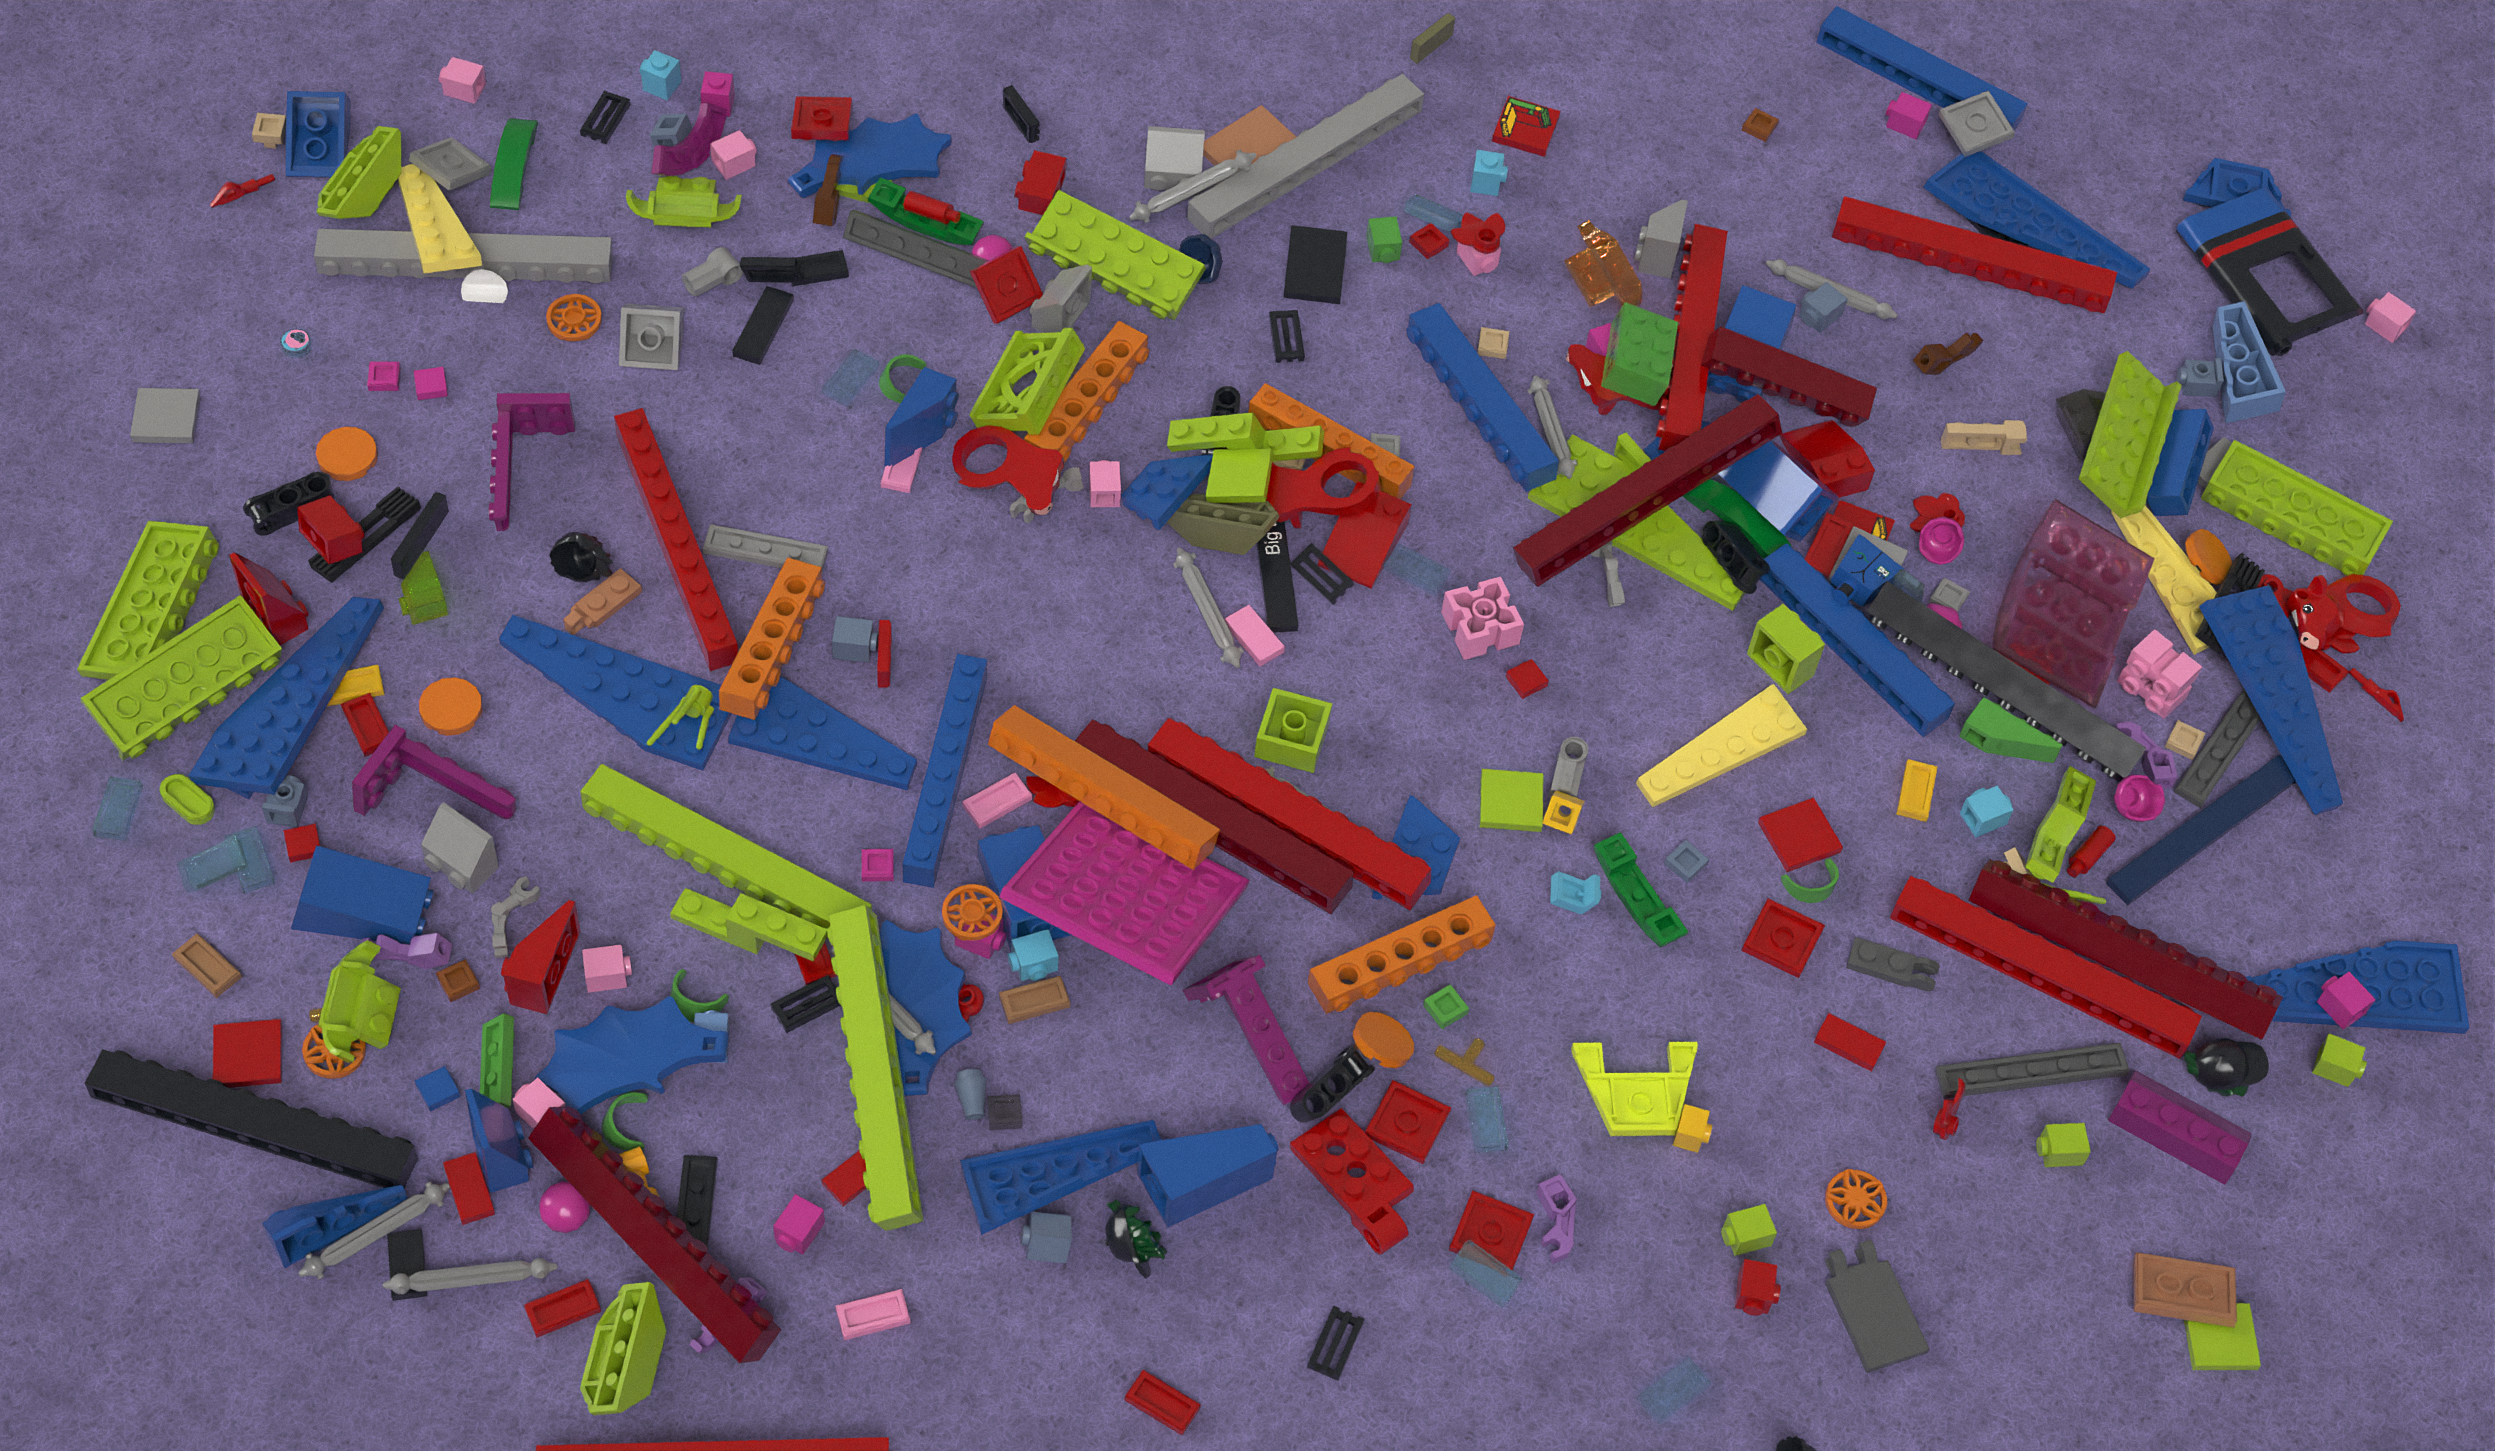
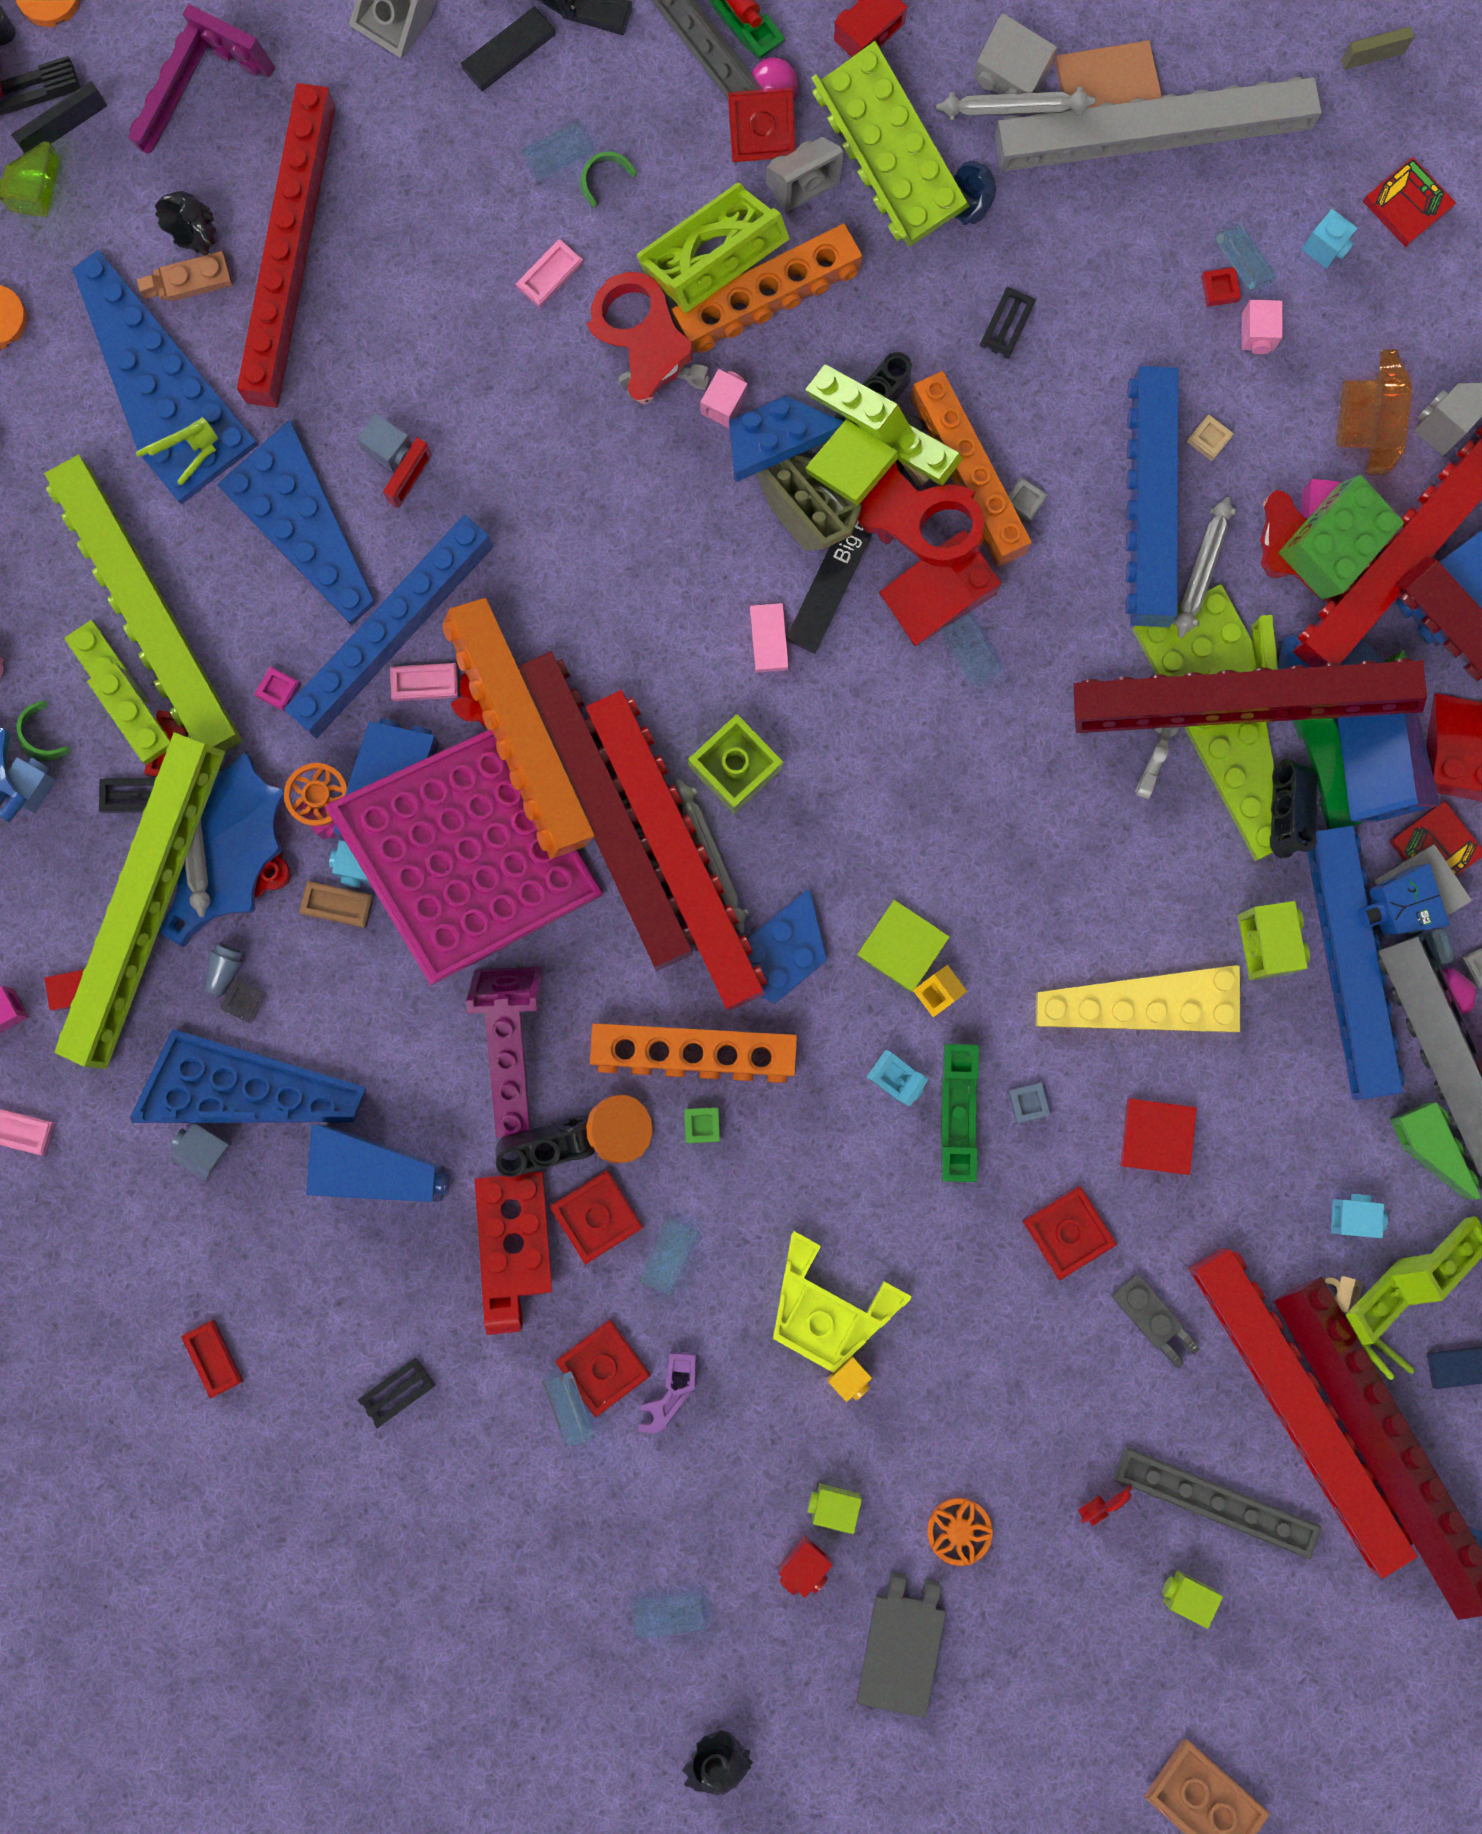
camera: 35 degrees right, 25 degrees up
(761, 548) = (368, 300): light grey tile -> none
(771, 639) = (312, 386): orange brick -> none
(921, 416) = (584, 233): blue slope -> none
(1132, 1238) = (274, 1197): hair -> none
(1208, 608) = (743, 584): light grey wheel -> none
(1315, 264) = (1088, 255): black tile -> none
(1339, 590) = (880, 633): black tile -> none
(1384, 239) = (1173, 263): bright green brick -> none
(1466, 1063) = (686, 1189): clear yellow piece -> none
(1480, 234) = (1271, 306): red plate -> none
(1482, 618) = (1012, 732): bright pink brick -> none
(1527, 678) = (1001, 826): red tile -> none
(1568, 769) = (973, 950): light grey piece -> none
(1812, 895) = (1150, 1210): bright green helmet -> none
(1828, 544) = (1396, 846): red tile -> none
(1850, 1042) = (1060, 1374): red tile -> none
(1916, 790) = (1305, 1153): yellow tile -> none
(2090, 851) = (1433, 1316): red cylinder -> none
(2180, 1127) = (1323, 1644): magenta slope -> none
(2228, 1066) = (1410, 1615): black hair -> none

